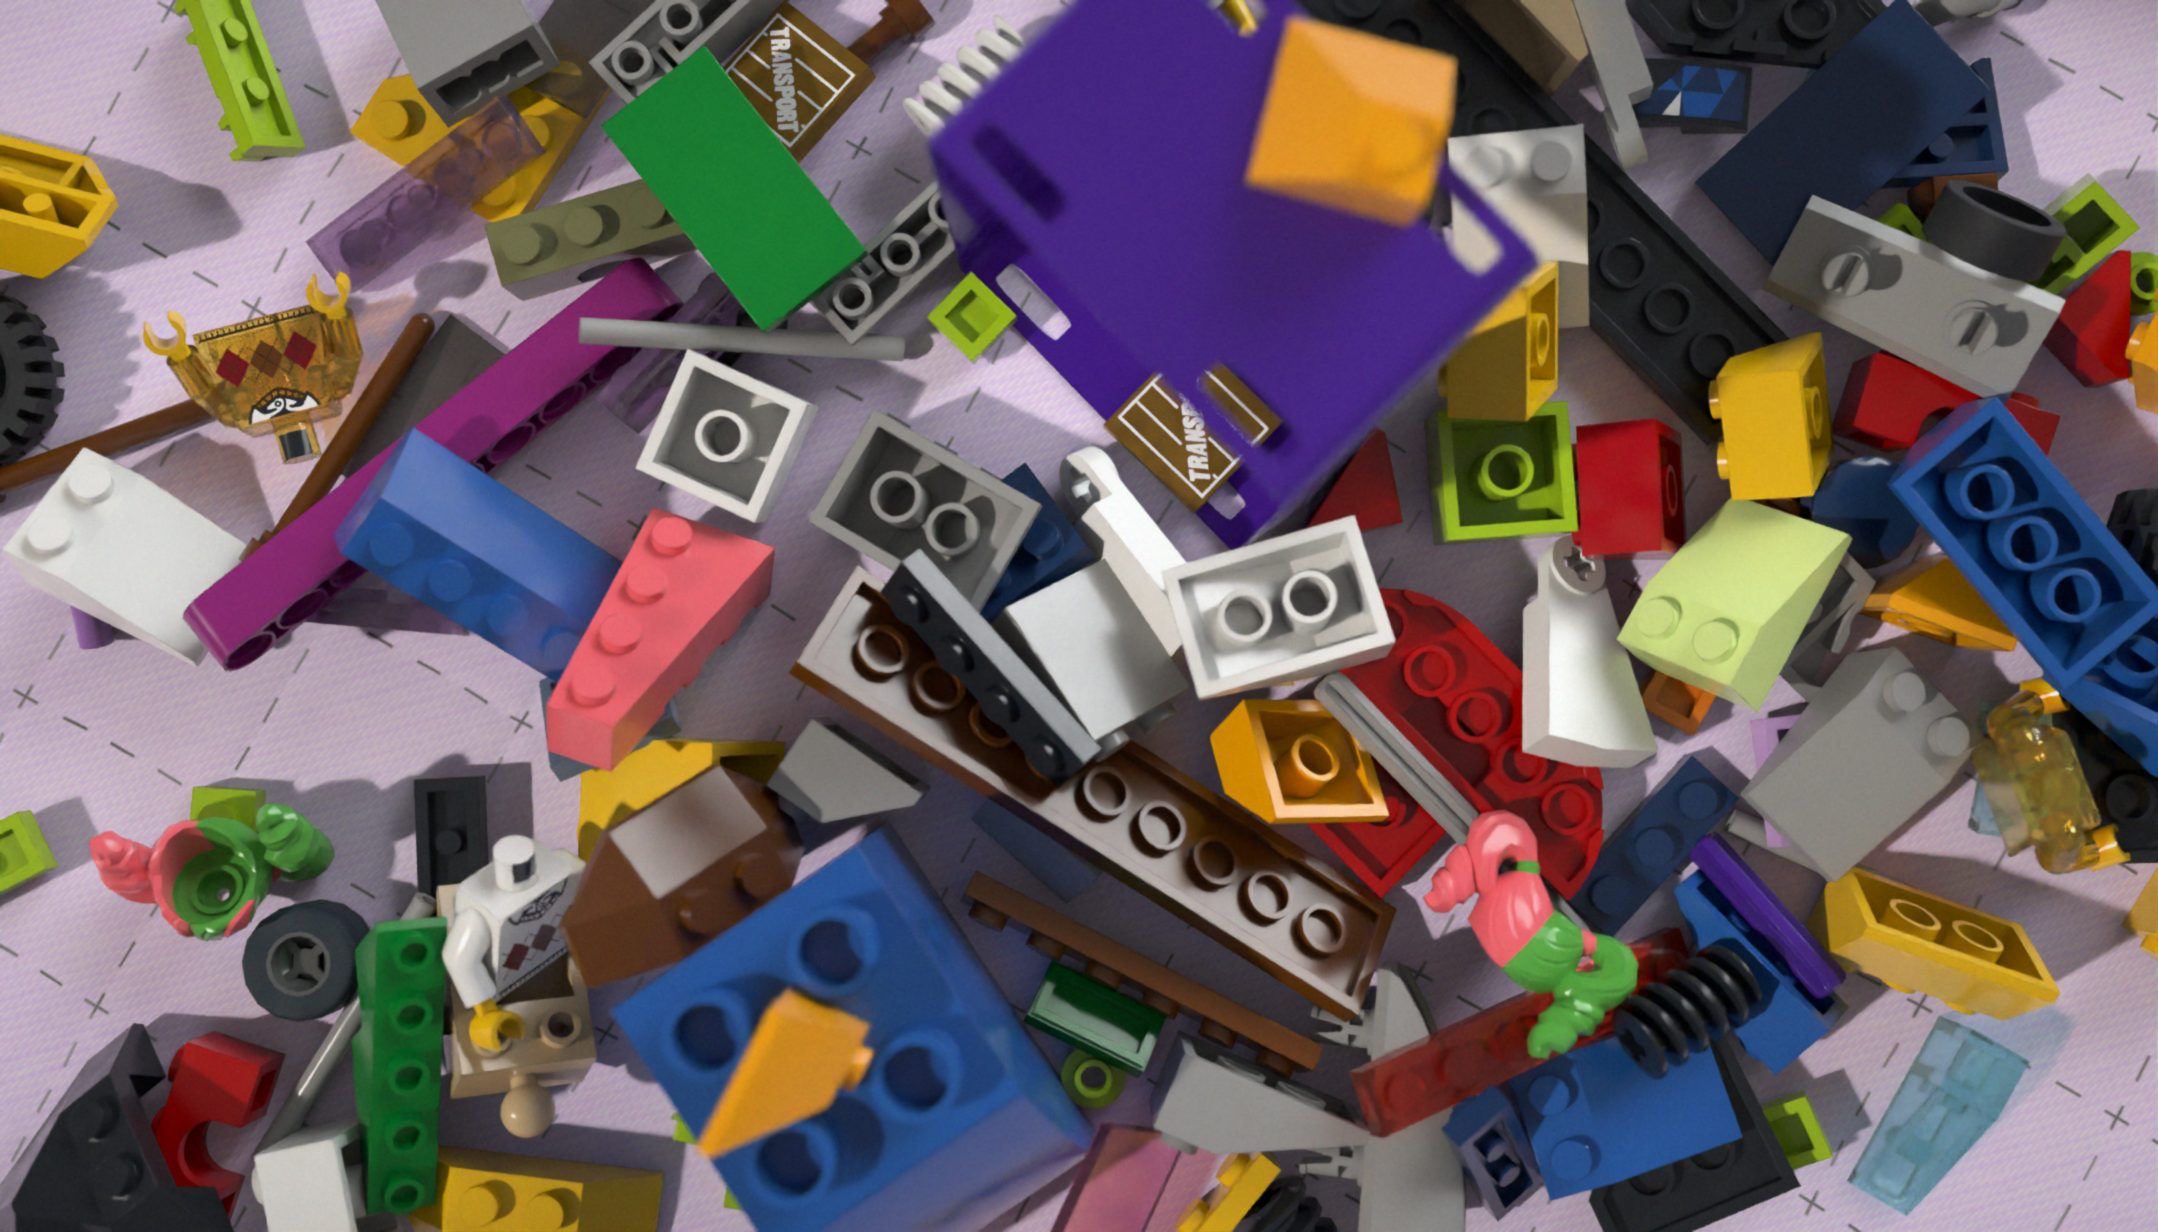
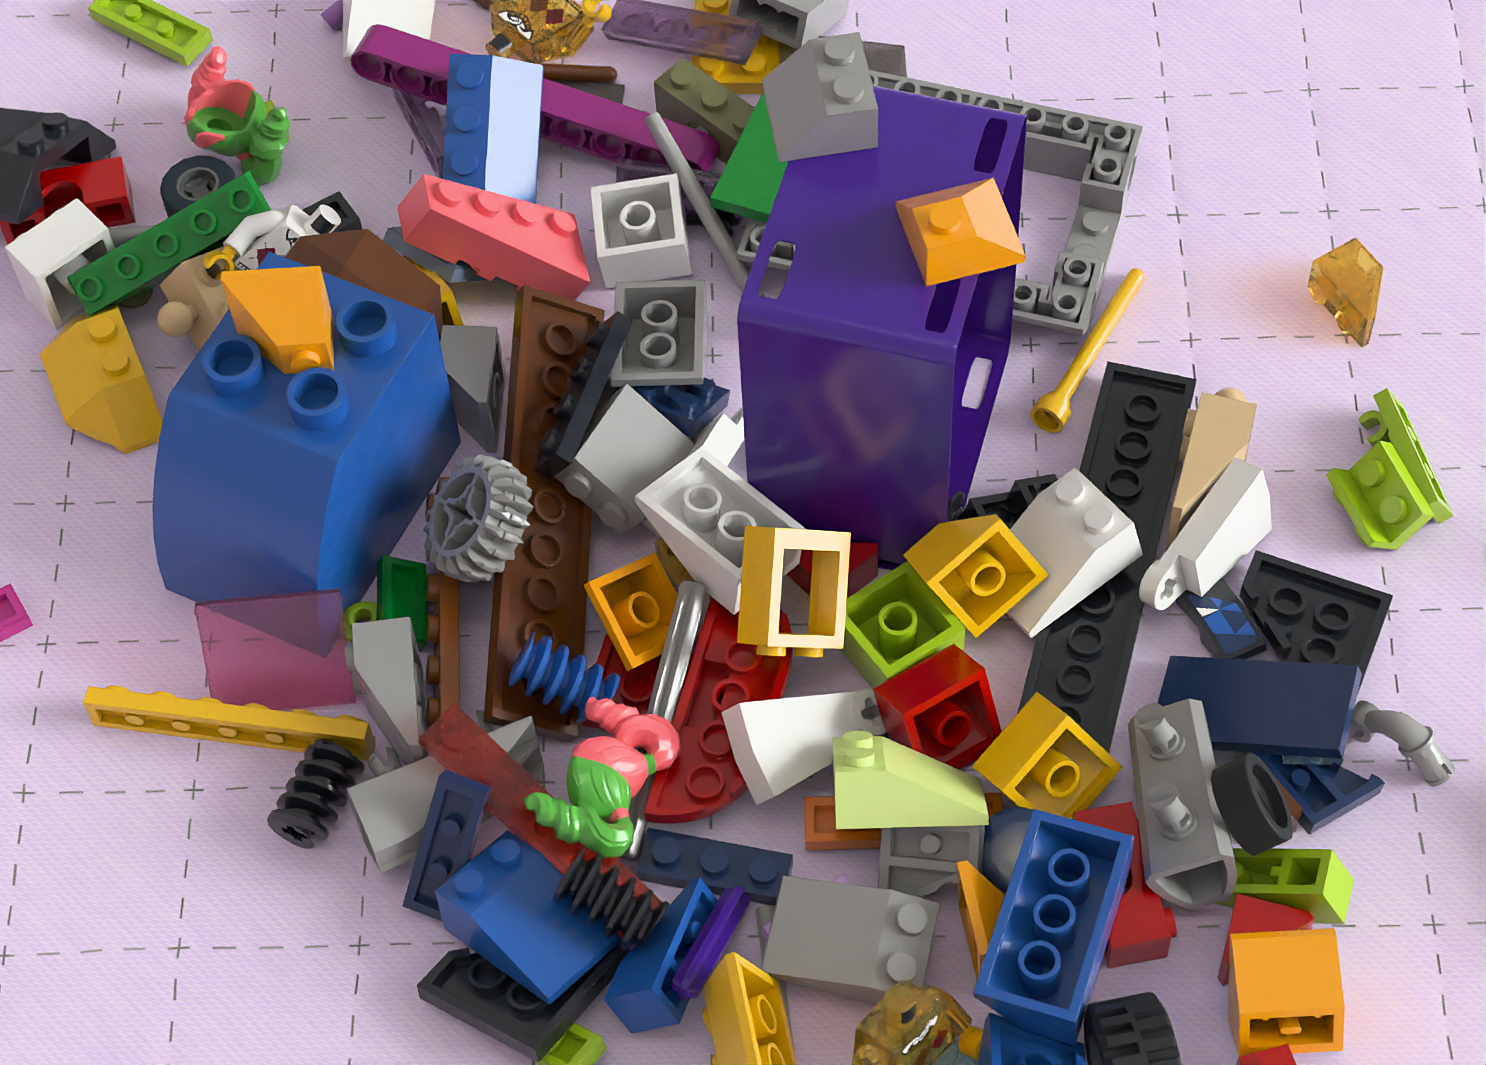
camera: 65 degrees right, 30 degrees down
(1013, 174) = (822, 100): none -> light grey slope
(1100, 899) = (478, 518): none -> light grey gear
(1363, 906) = (561, 678): none -> blue piece
(1416, 527) = (762, 590): none -> yellow window

